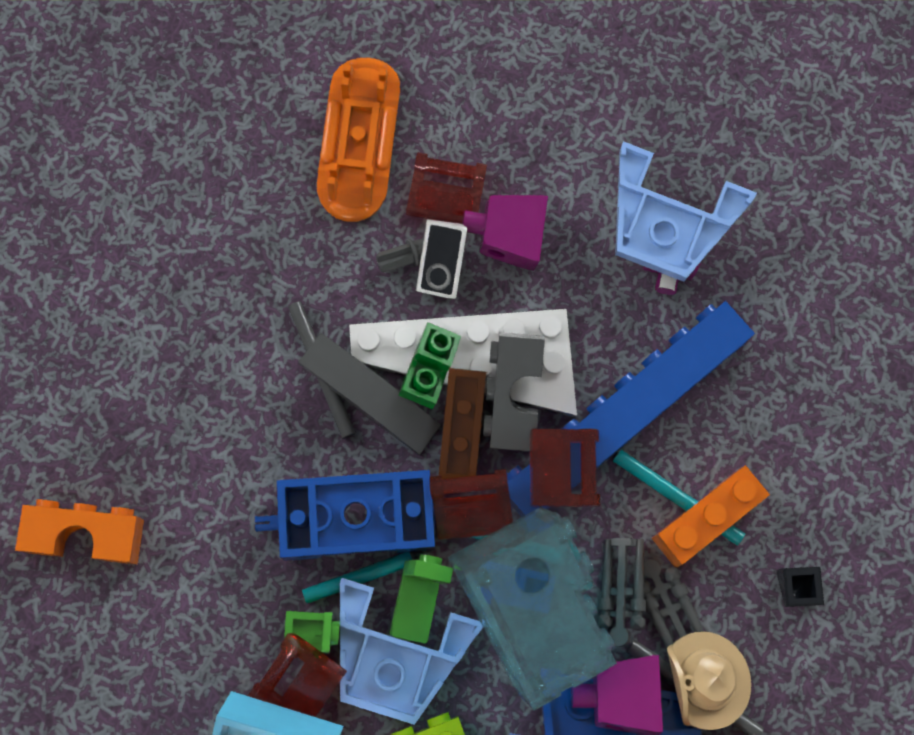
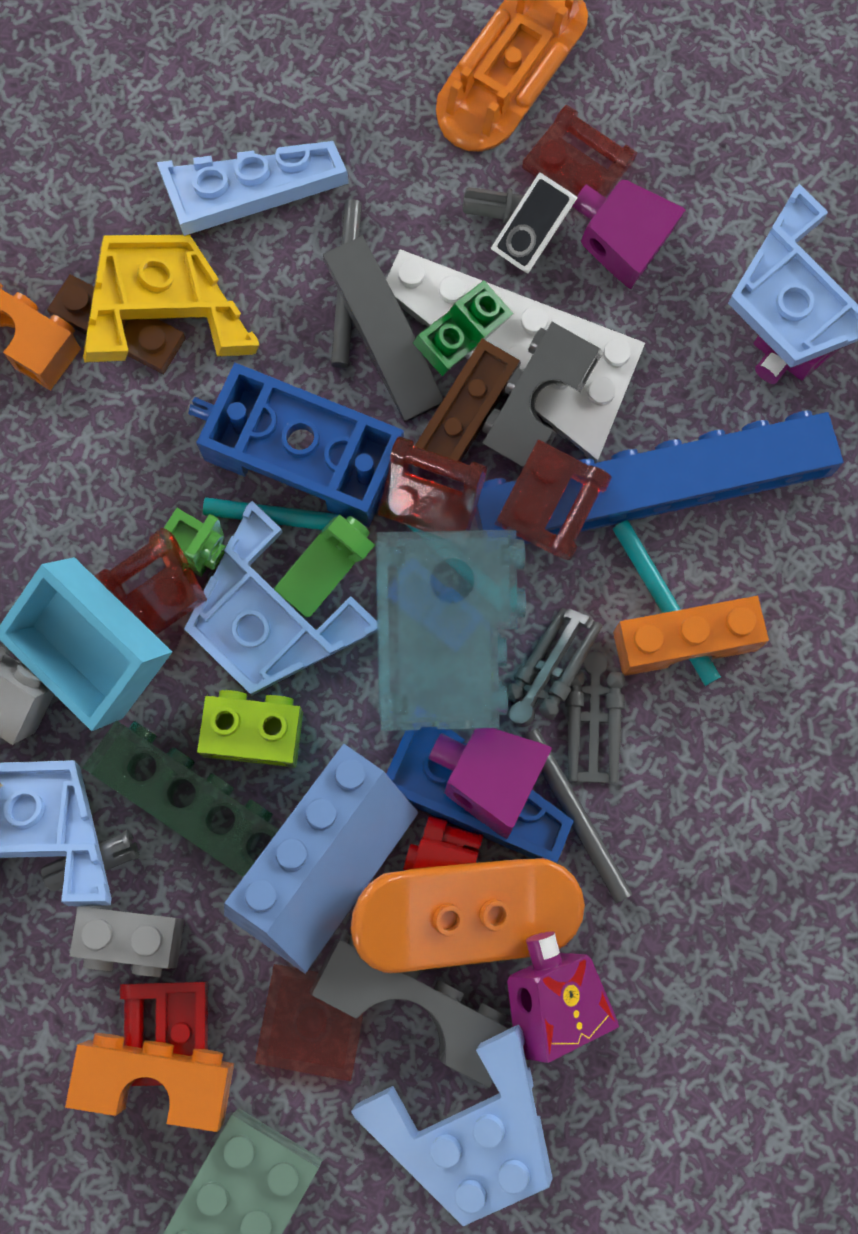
camera: 30 degrees right, 0 degrees up
(162, 487) = (147, 339): none -> reddish brown plate
(177, 442) = (153, 281): none -> yellow wing
(194, 341) = (231, 189): none -> light blue wing
(709, 680) = (597, 810): tan hat -> none
(801, 586) = (754, 763): black slope -> none

